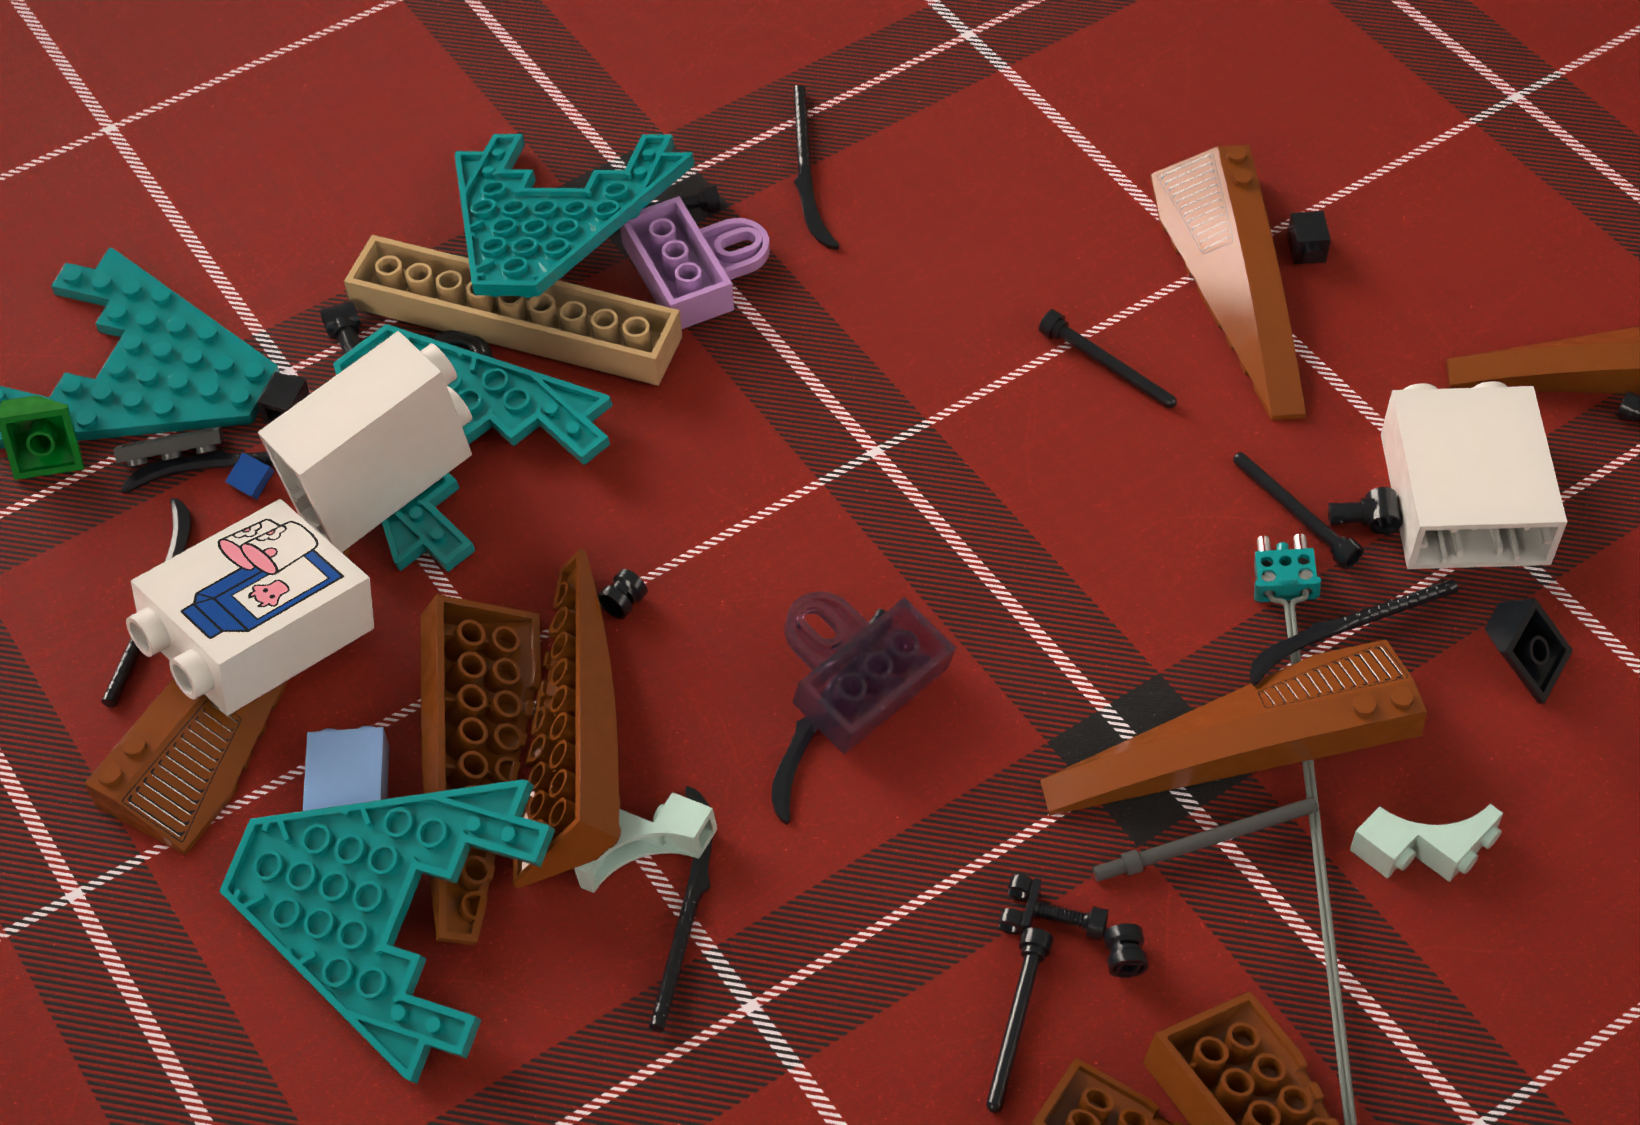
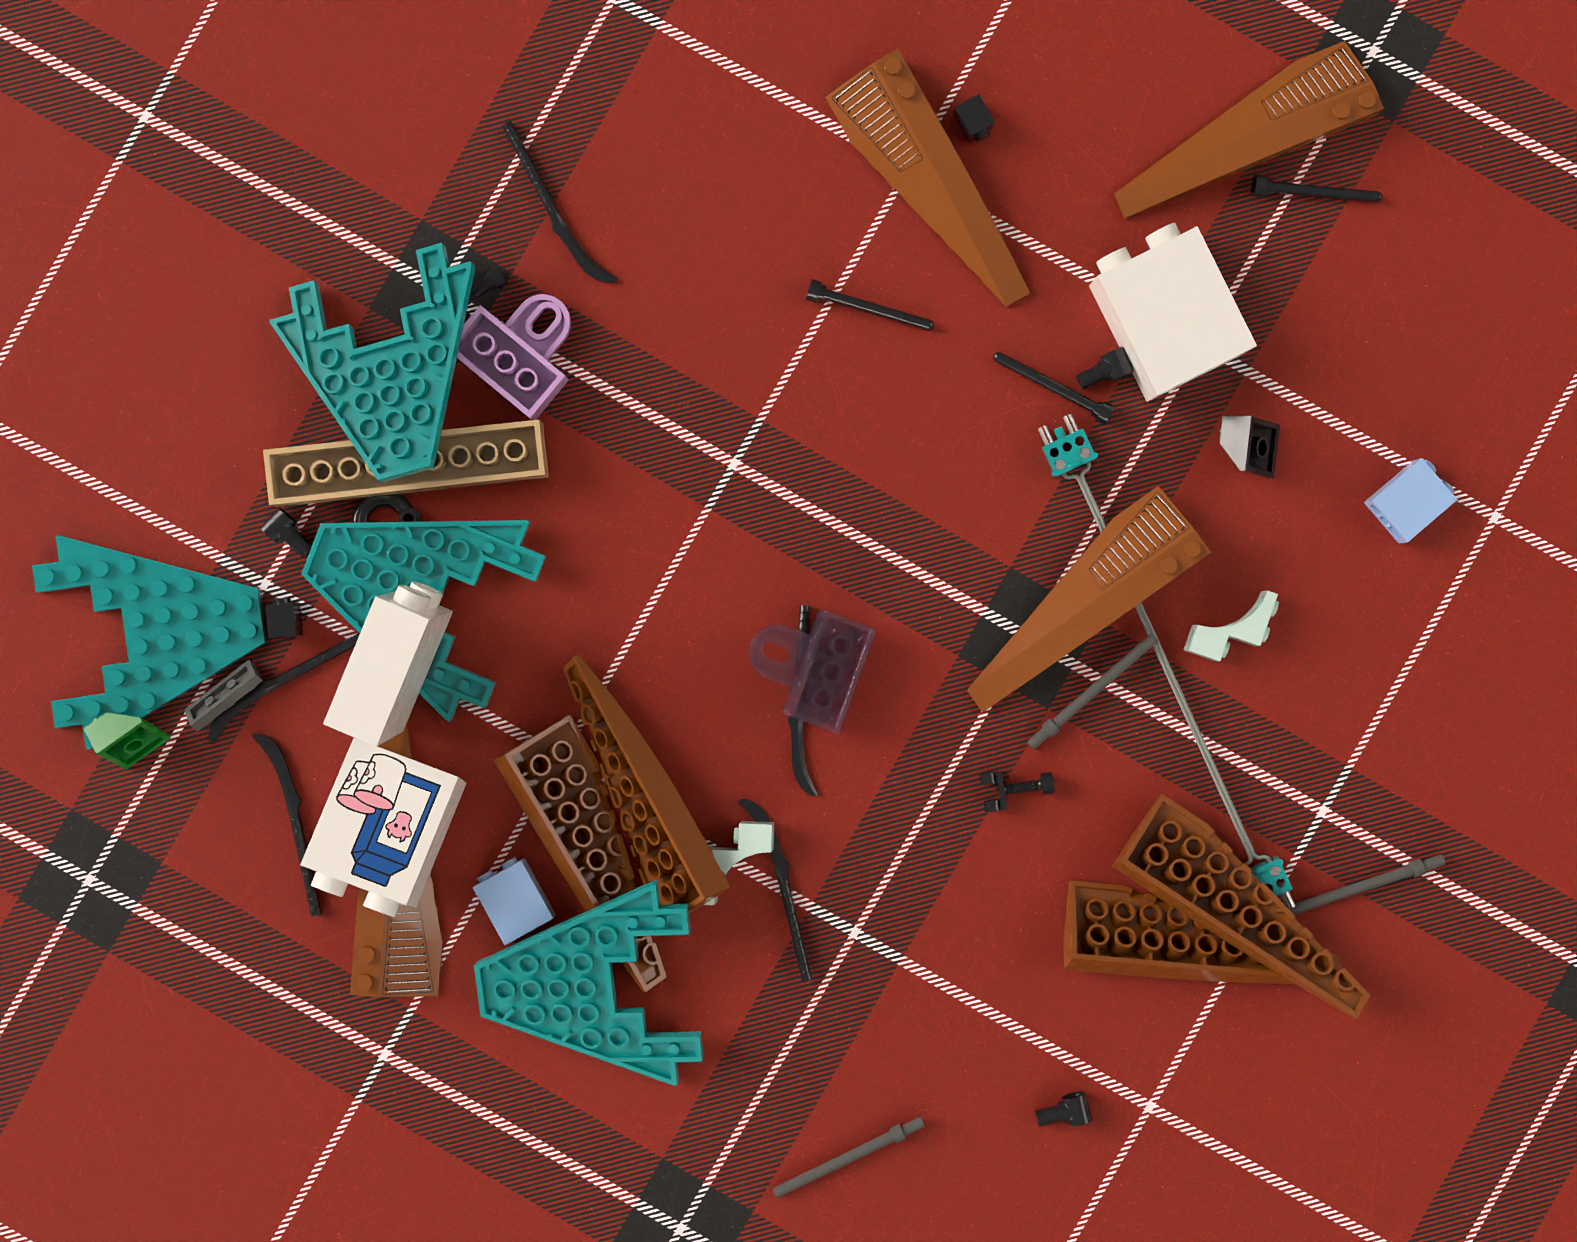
camera: 25 degrees left, 35 degrees up
(250, 475) = (298, 694): blue tile -> none
(623, 592) = (620, 675): black wheel -> none
(1034, 947) = (1015, 818): black piece -> none
(1125, 950) = (1073, 796): black wheel -> none
(1323, 629) = (1111, 489): black piece -> none

